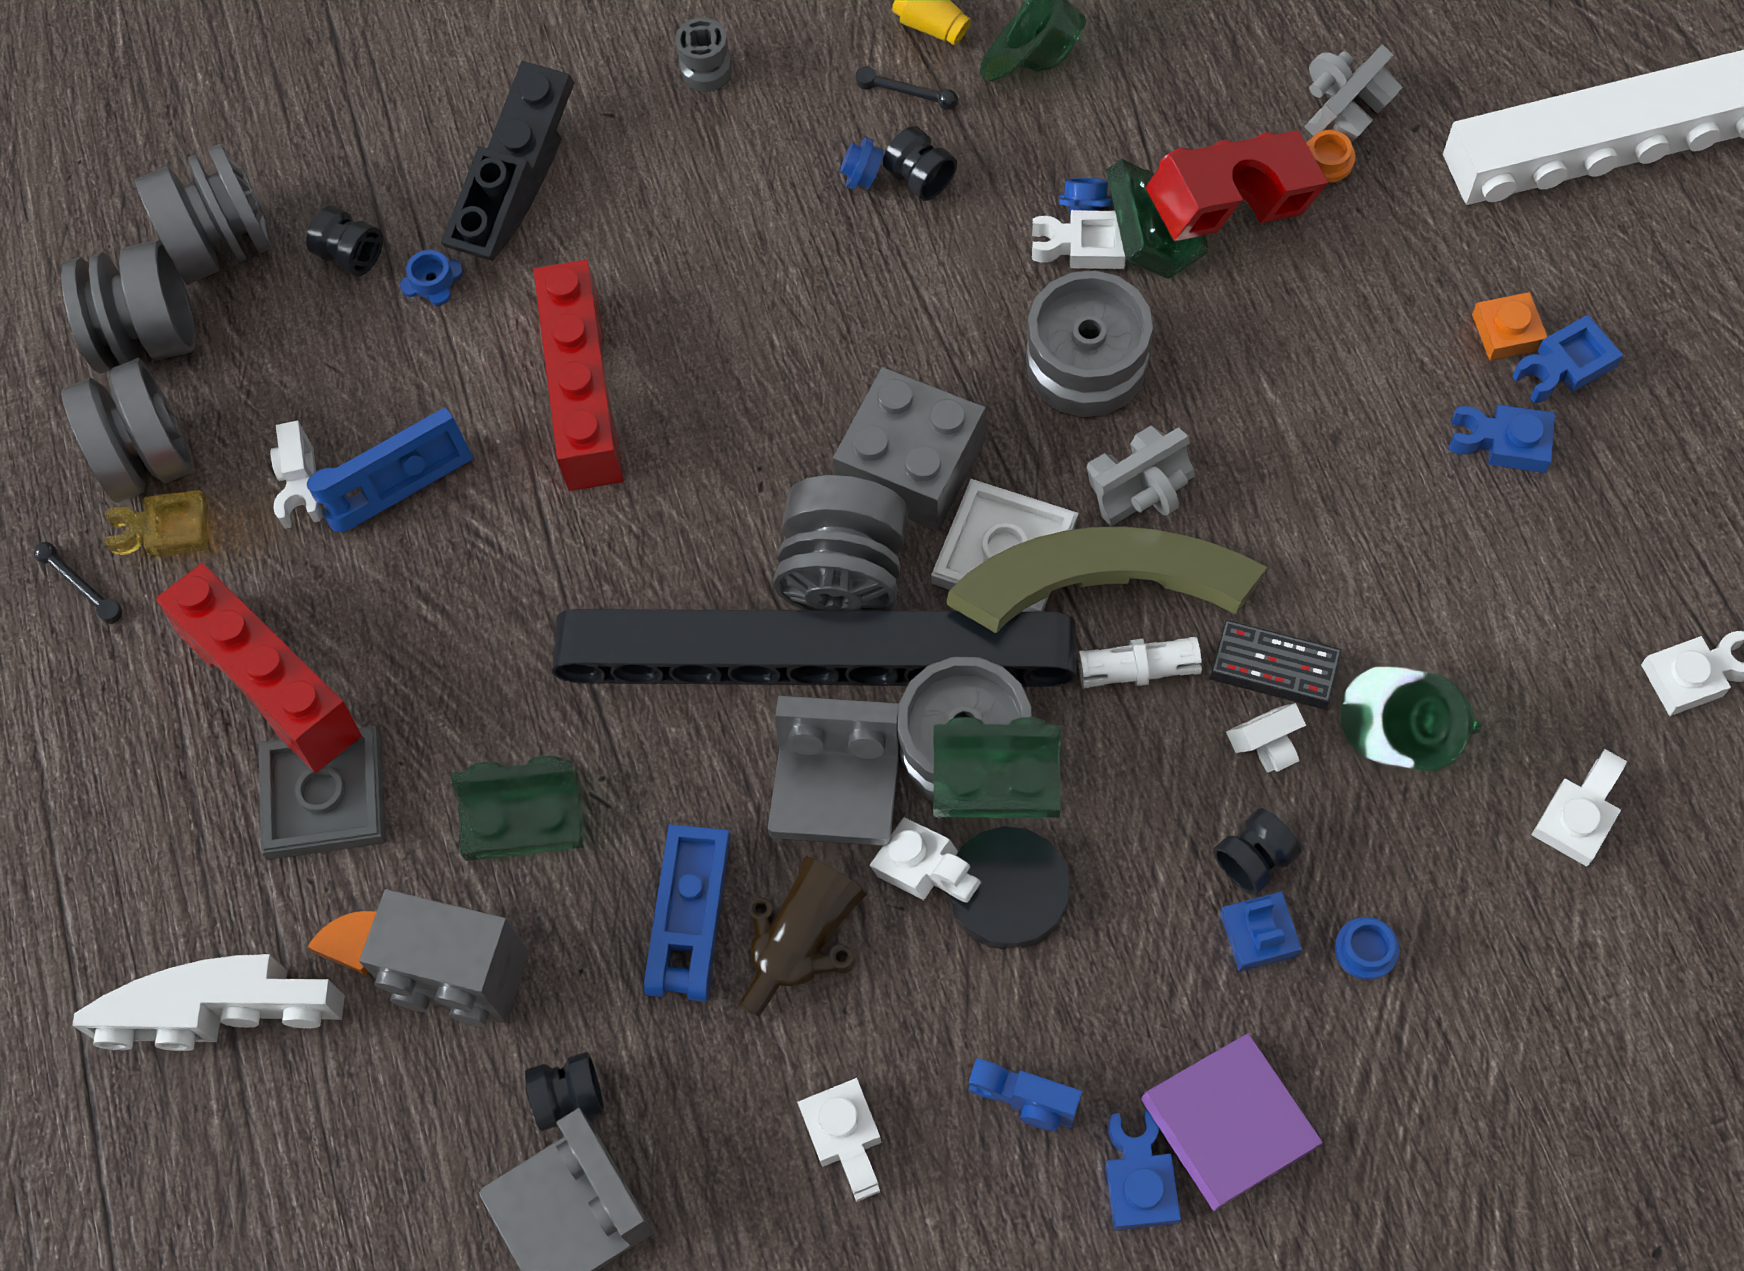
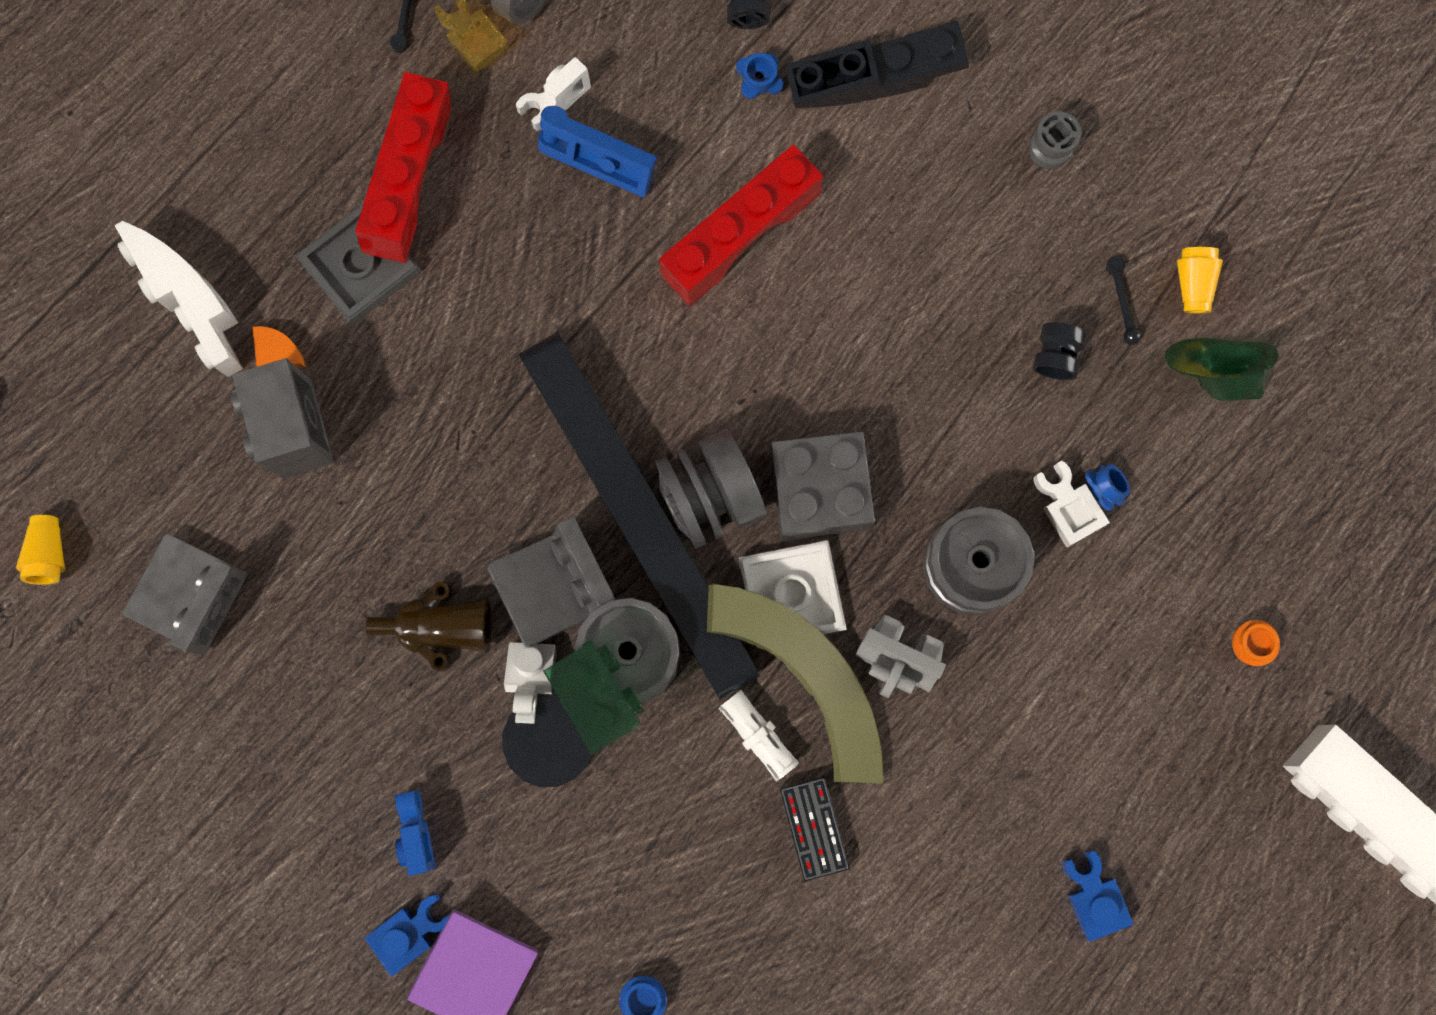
camera: 55 degrees right, 15 degrees up
(519, 808) = (415, 397): clear green bracket -> none
(562, 1090) = (252, 545): black wheel -> none
(687, 911) = (412, 546): blue plate -> none
(842, 1131) = (331, 730): white plate -> none
(861, 164) = (1033, 310): blue plate -> none
(1142, 228) = (1119, 548): clear green bracket -> none
(1206, 185) = (1204, 611): red arch -> none
(1257, 851) = (675, 893): black wheel -> none
(1260, 931) = (615, 923): blue tile -> none
(1269, 737) = (754, 853): white tile -> none
(1334, 77) = (1341, 635): light grey hips -> none
(1407, 718) = (819, 946): clear green piece -> none
(1509, 326) = (1191, 853): orange plate -> none
(1570, 355) = (1189, 913): blue plate -> none

